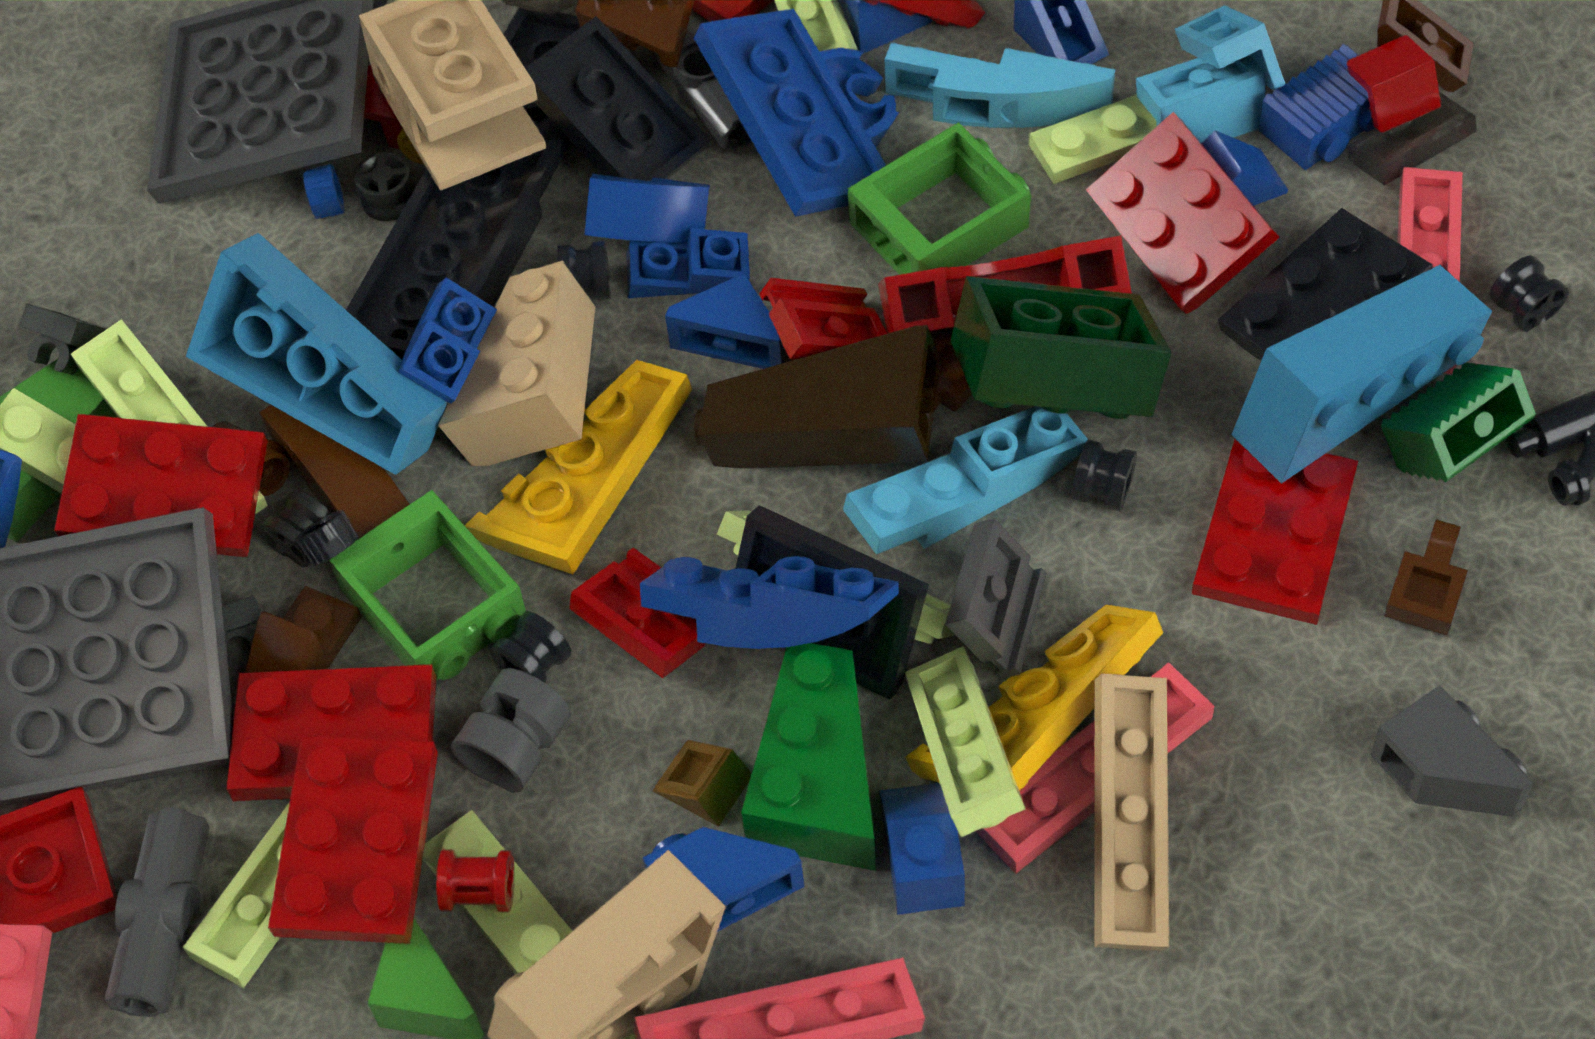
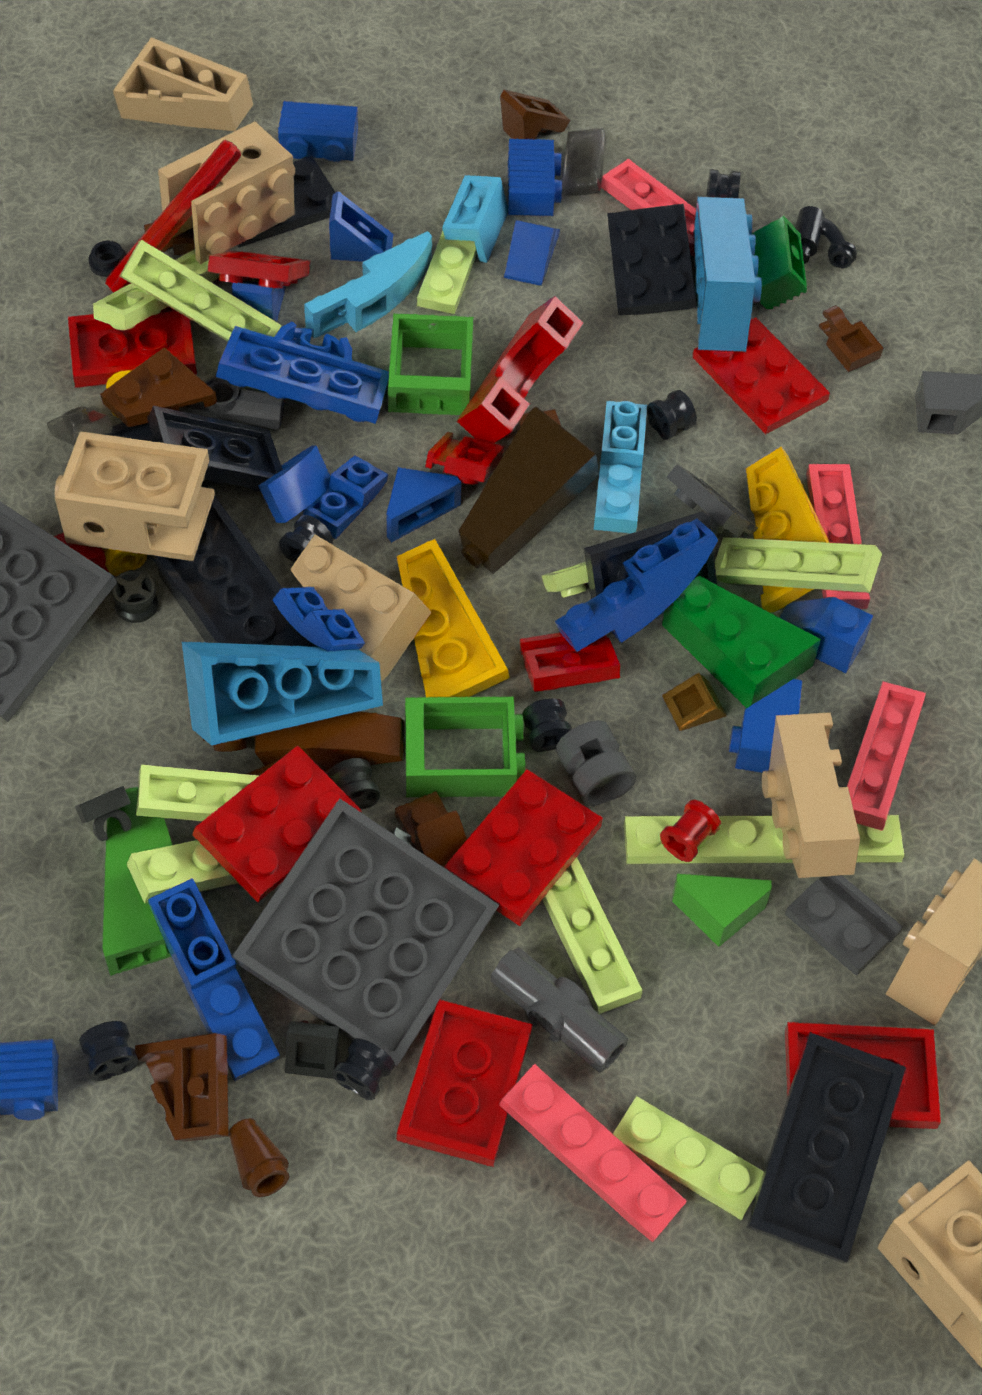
camera: 60 degrees left, 0 degrees up
(324, 191) = (104, 628): blue axle -> none
(326, 538) = (389, 767): black axle -> none
(354, 840) = (620, 868): red plate -> none
(1059, 348) = (593, 369): dark green brick -> none
(1131, 813) = (882, 527): tan plate -> none
(1182, 214) = (533, 266): plate -> none
(1229, 36) = (465, 174): medium azure panel -> none
(1398, 82) = (558, 132): red panel -> none

